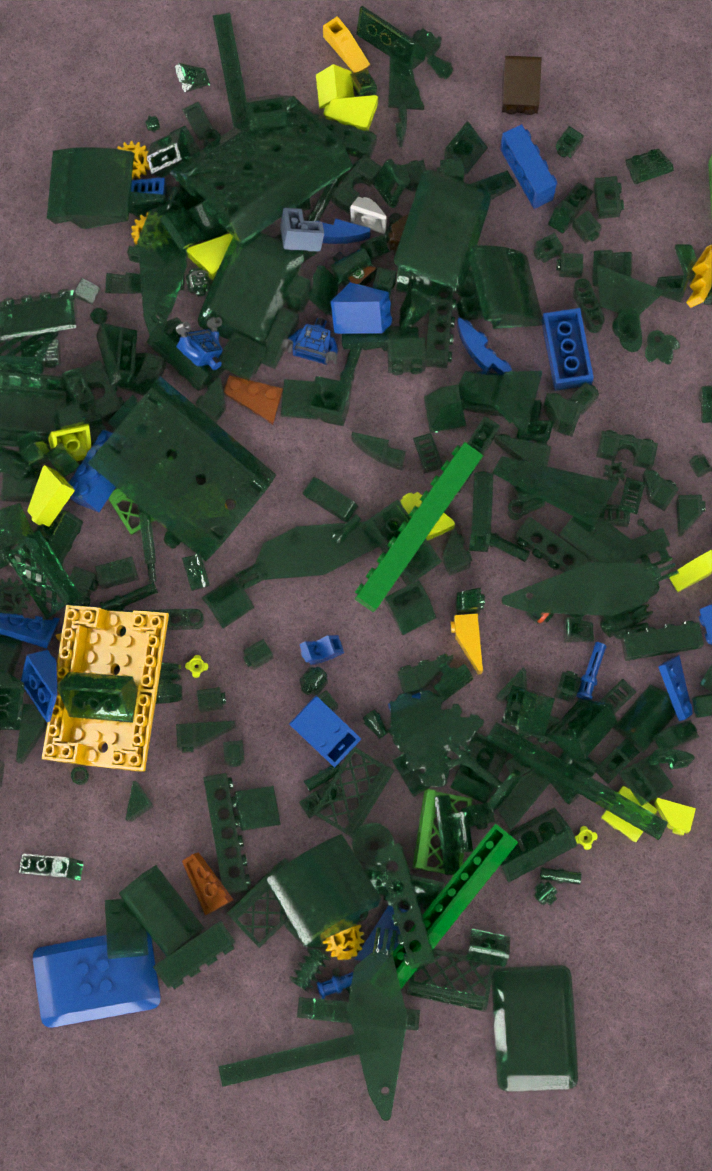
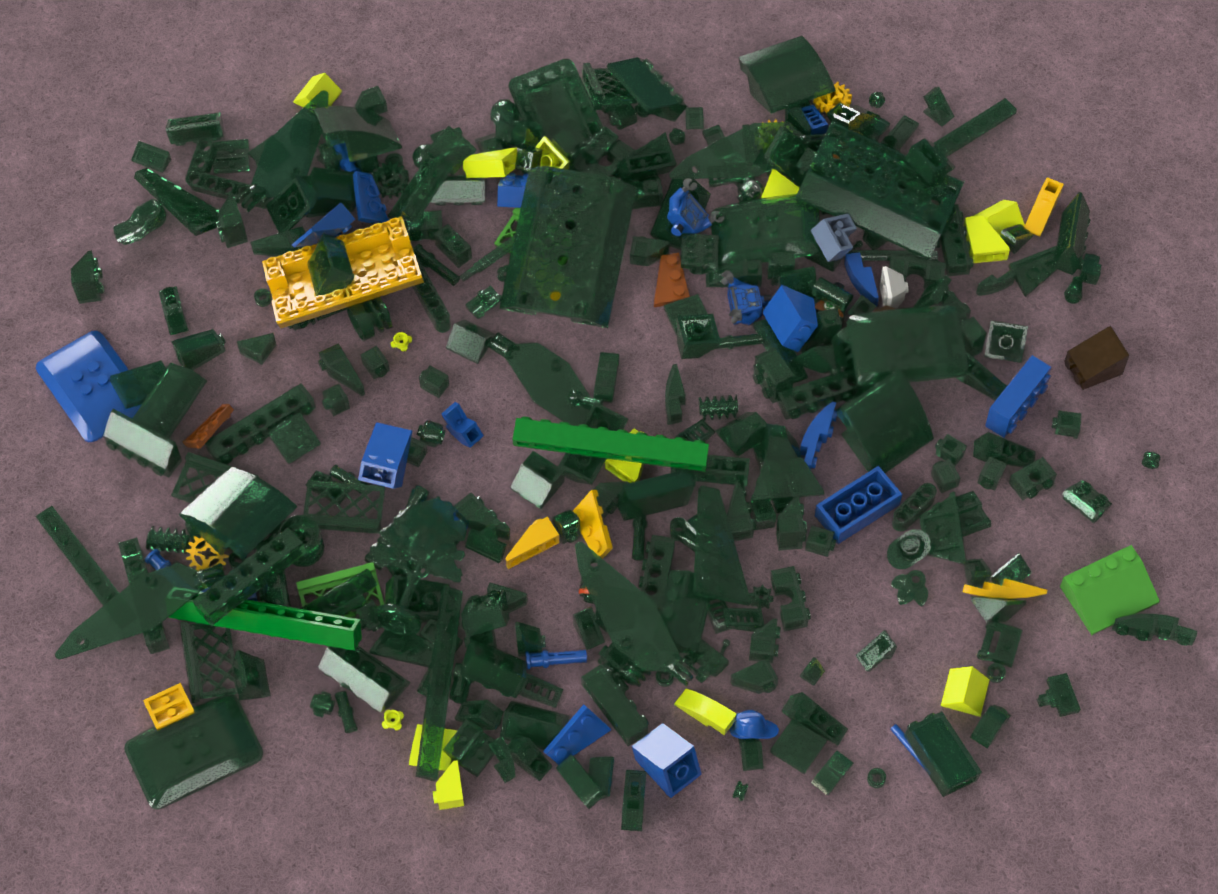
camera: 65 degrees right, 15 degrees down
(113, 858) = (198, 348): none -> clear green slope
(410, 417) = (718, 407): none -> clear green piece
(471, 577) = (592, 525): none -> yellow wing
(484, 1033) = (168, 706): none -> yellow slope
(634, 96) = (1151, 460): none -> clear green bush

